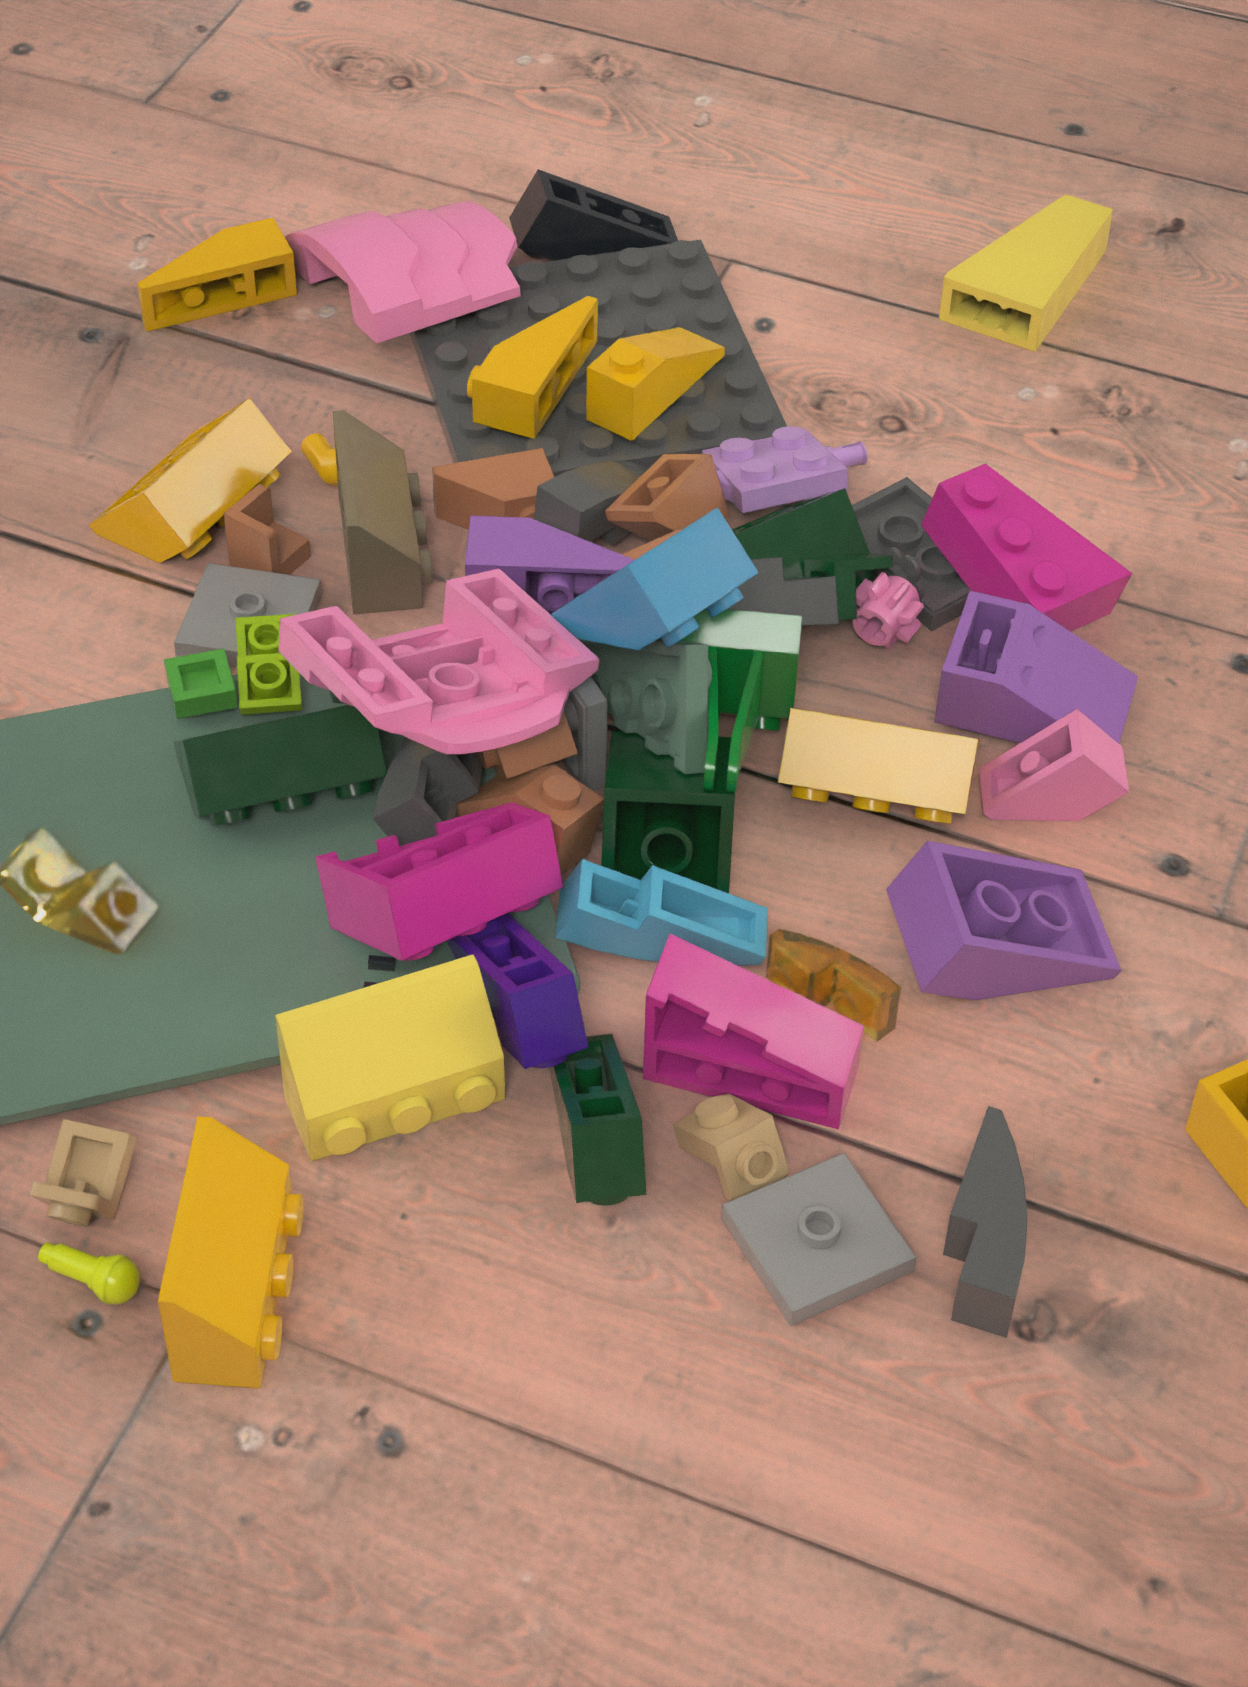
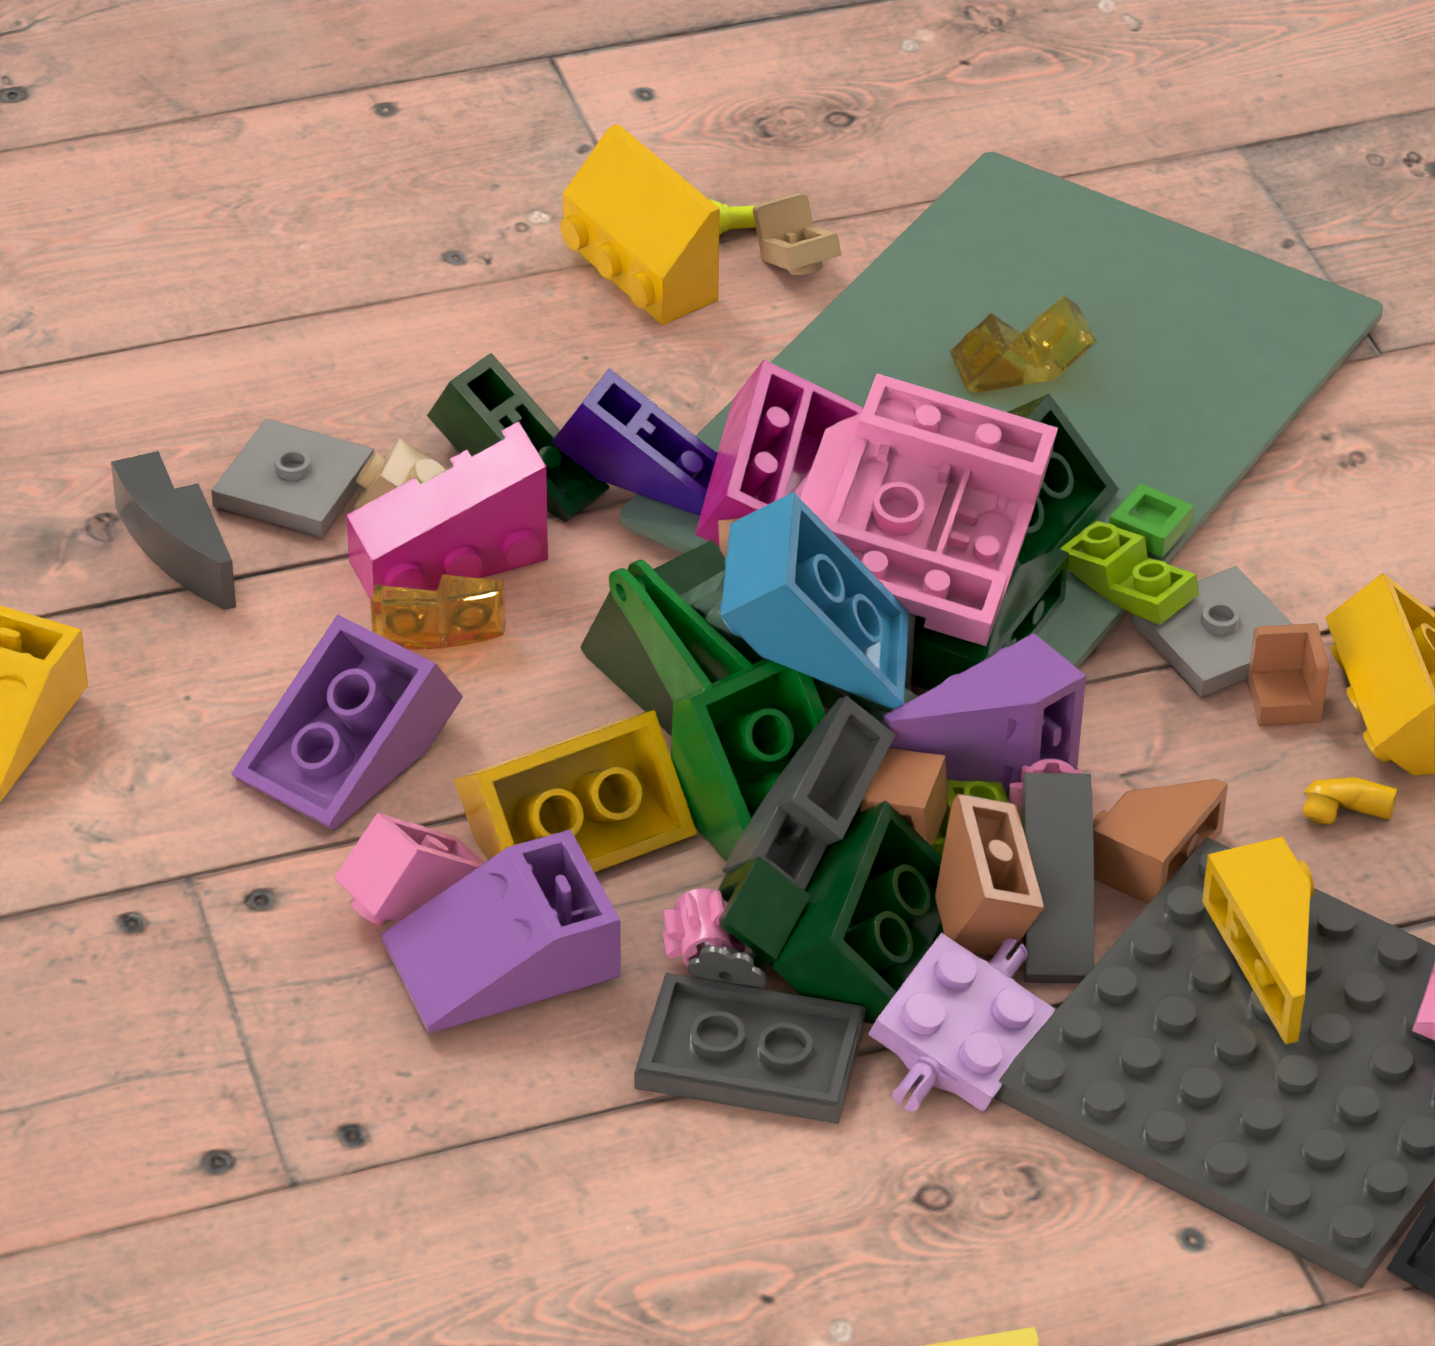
camera: 140 degrees right, 5 degrees down
(379, 520) = (1220, 715): dark tan slope -> none
(390, 1058) = (696, 356): light yellow slope -> none
(636, 916) = (569, 604): medium azure slope -> none
(644, 377) = (1169, 1001): yellow slope -> none
(1020, 550) = (624, 1021): dark pink wedge -> none

